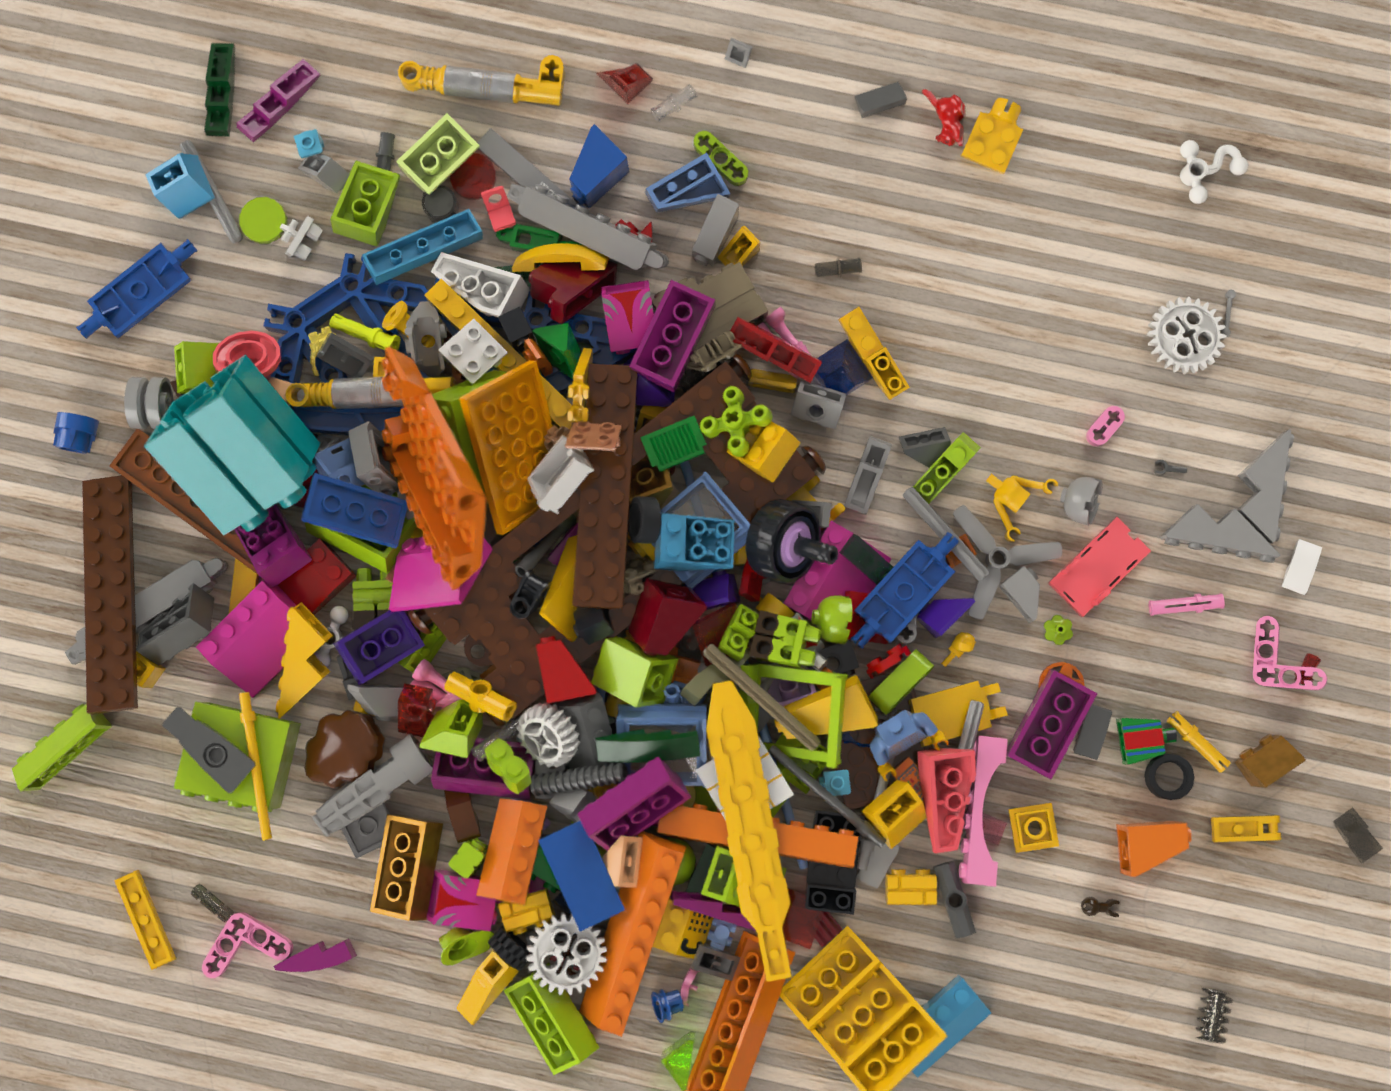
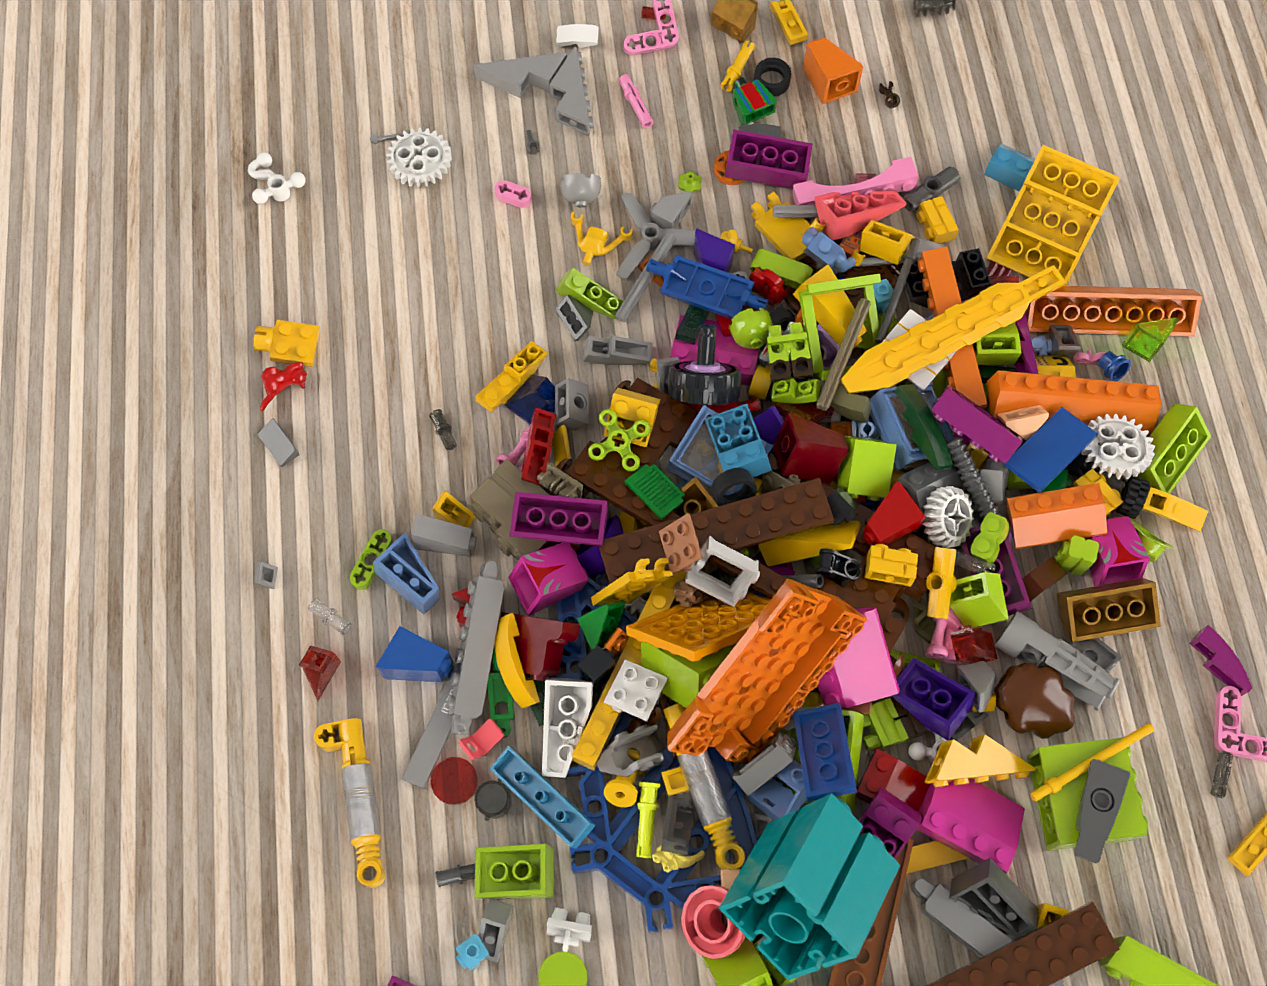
camera: 115 degrees left, 15 degrees down
(437, 154) = (446, 813): yellowish green slope -> none
(511, 648) = (891, 565): none -> yellow brick
(1022, 817) = (849, 163): yellow piece -> none
(1089, 577) = (630, 167): coral piece -> none

